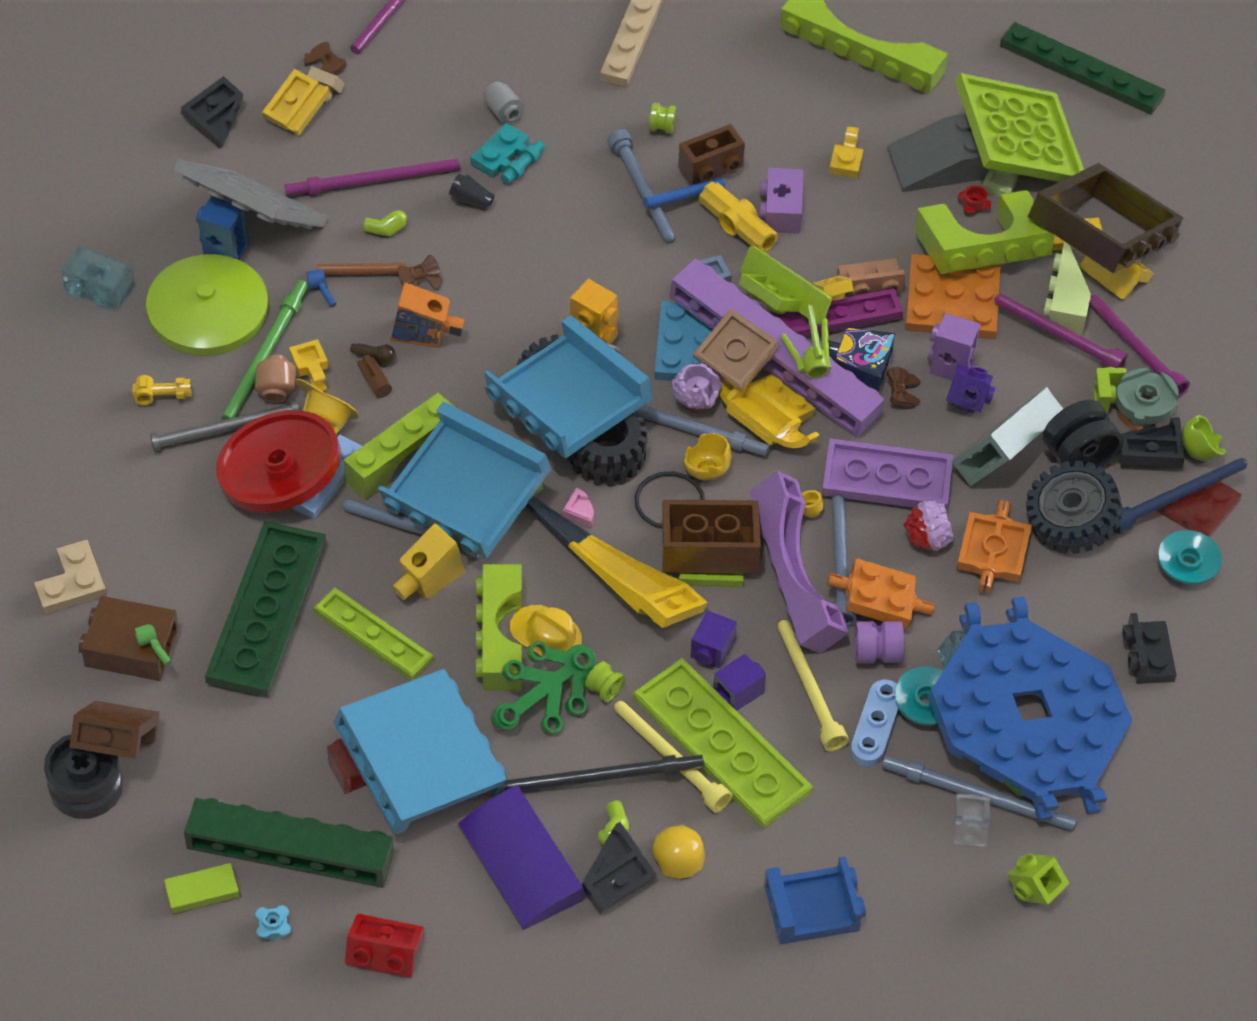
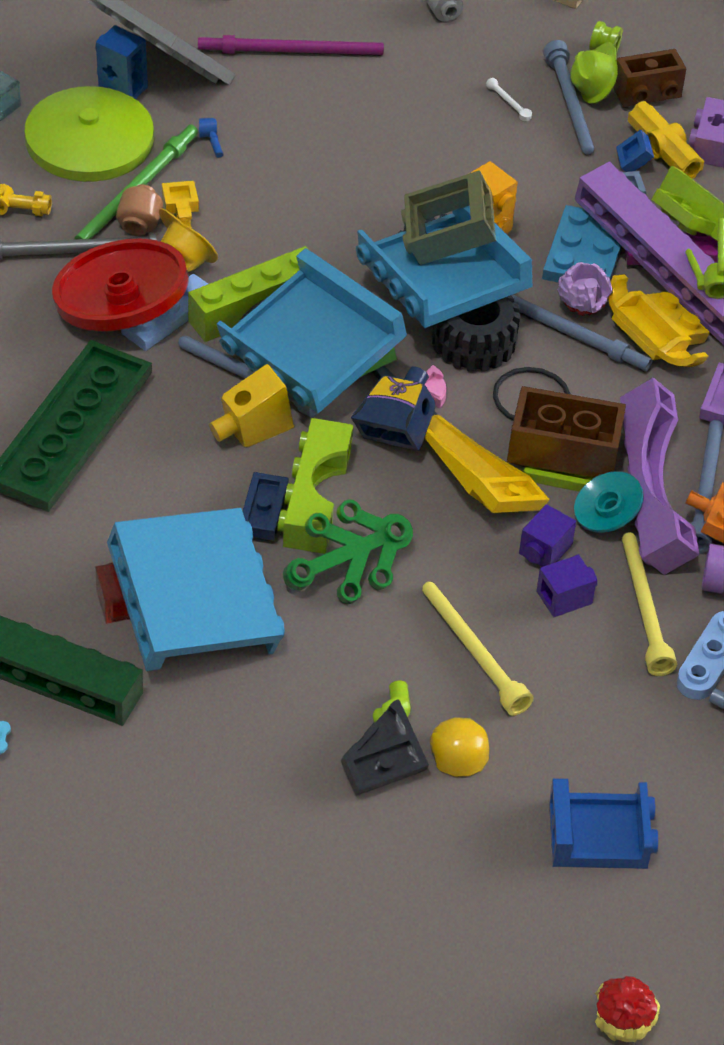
camera: 10 degrees right, 5 degrees down
(360, 268) = (260, 127): dark orange bar -> none
(373, 634) = (176, 468): lime tile -> none
(374, 376) = (245, 226): reddish brown piece -> none
(383, 354) = (260, 207): dark brown piece -> none
(383, 945) = (104, 782): red bracket -> none
(388, 225) = (295, 91): lime arm -> none
(423, 318) = (308, 177): torso -> none
(427, 269) = (326, 137): reddish brown piece -> none
(459, 653) = (264, 504): none -> dark blue plate
(470, 192) = (387, 73): black cone -> none
(500, 151) = (435, 47): teal plate -> none
(521, 858) = (282, 722): dark purple slope -> none
(546, 625) = (372, 492): yellow piece -> none
(555, 328) = (444, 198): none -> olive window
(557, 542) = (397, 410): none -> dark blue torso
(604, 210) = (524, 114): none -> white hinge
(605, 681) = (418, 558): lime wheel -> none
(661, 157) = (595, 72): none -> lime piece
(669, 766) = (468, 653): black bar -> none
(678, 194) = (602, 110): blue bar -> none
(709, 457) = (583, 359): yellow hair -> none
(713, 234) = (635, 151): none -> blue plate
(731, 748) = (535, 646): lime tile -> none
(736, 350) = (634, 256): medium nougat tile -> none
(752, 588) = (608, 502): none -> teal dish
(813, 503) = (687, 423): yellow hinge -> none

